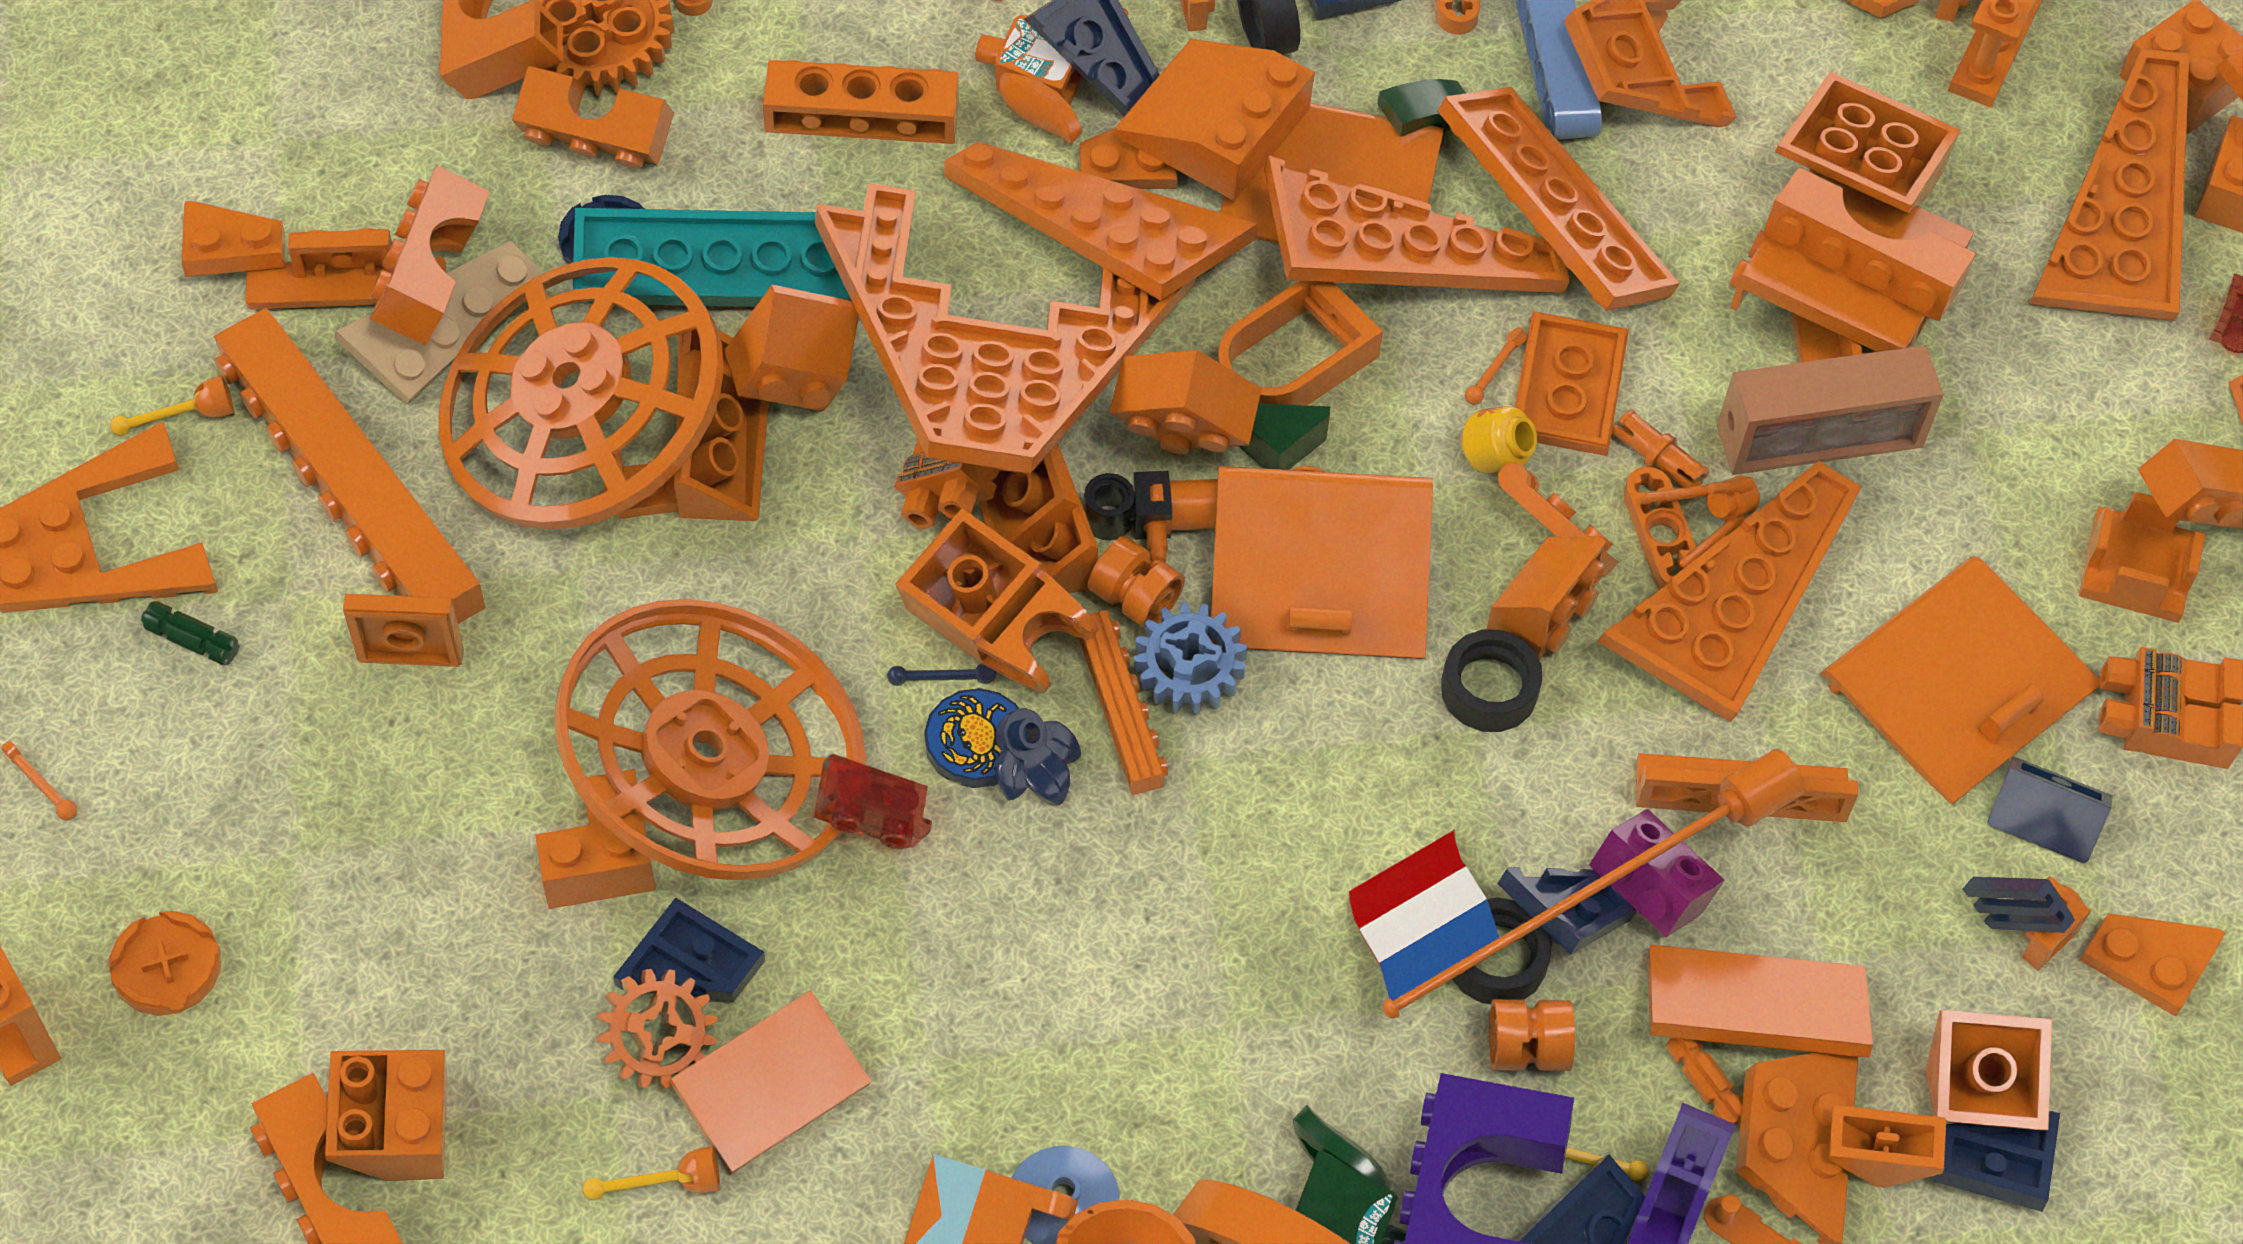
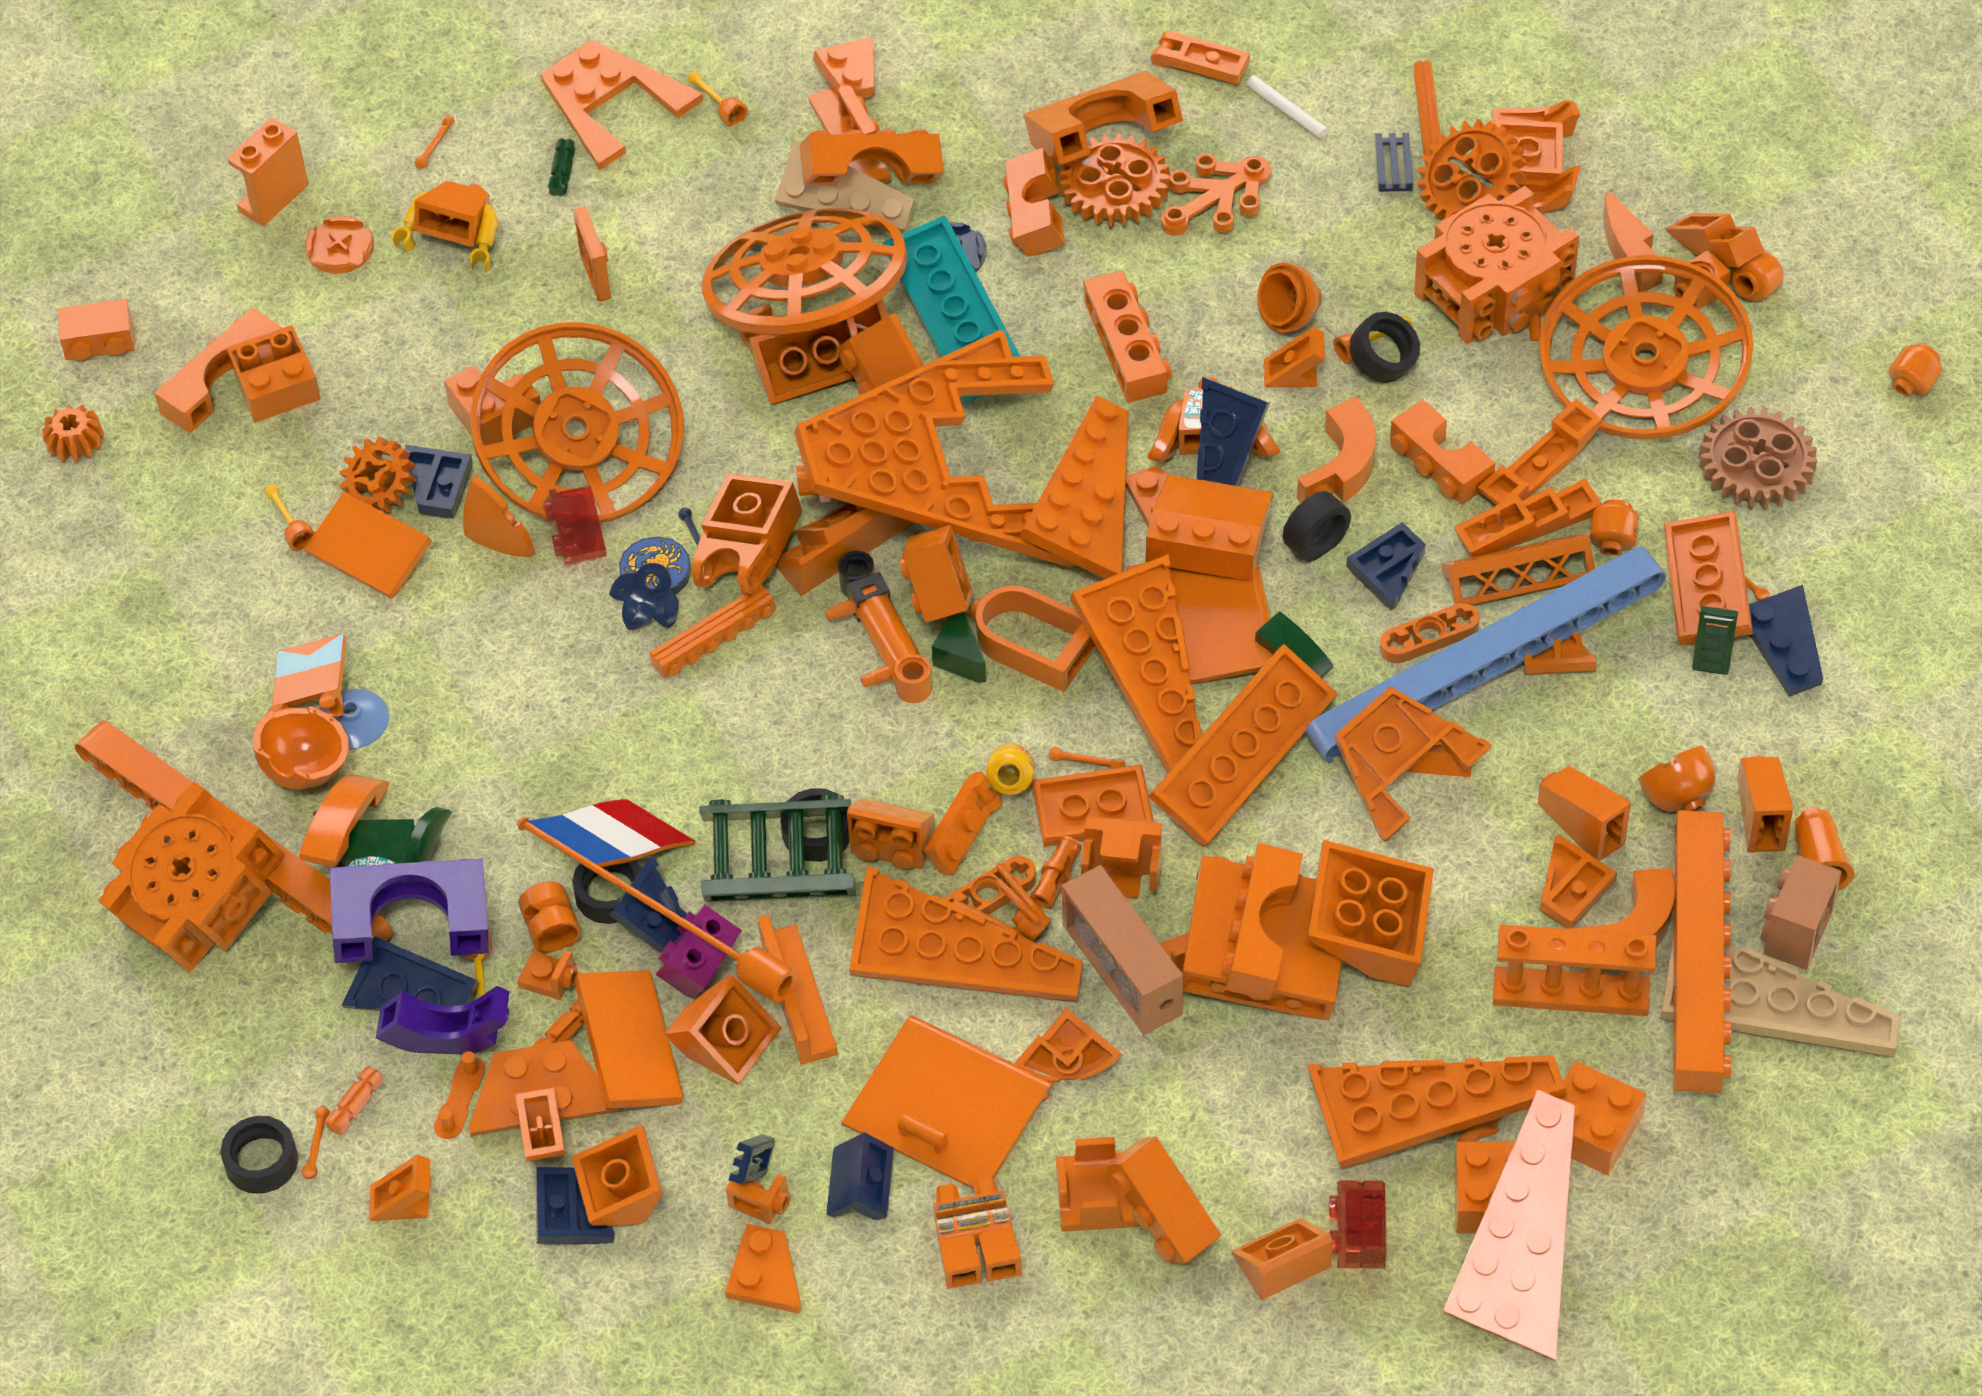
camera: 75 degrees right, 5 degrees down
(220, 783) = (452, 214): none -> orange torso
(343, 465) = (703, 191): orange brick -> none
(821, 900) = (492, 524): none -> orange brick
(1130, 579) = (801, 606): orange wheel -> none
(1208, 671) = (744, 663): medium blue gear -> none
(1323, 560) = (861, 698): orange container -> none
(1584, 728) = (797, 882): none -> dark green fence
(1613, 1067) = (548, 974): none -> orange bracket
(1694, 339) = (1125, 851): none -> orange panel
(1783, 888) = (724, 1030): none -> orange slope
(1930, 524) = (1068, 1051): none -> orange brick

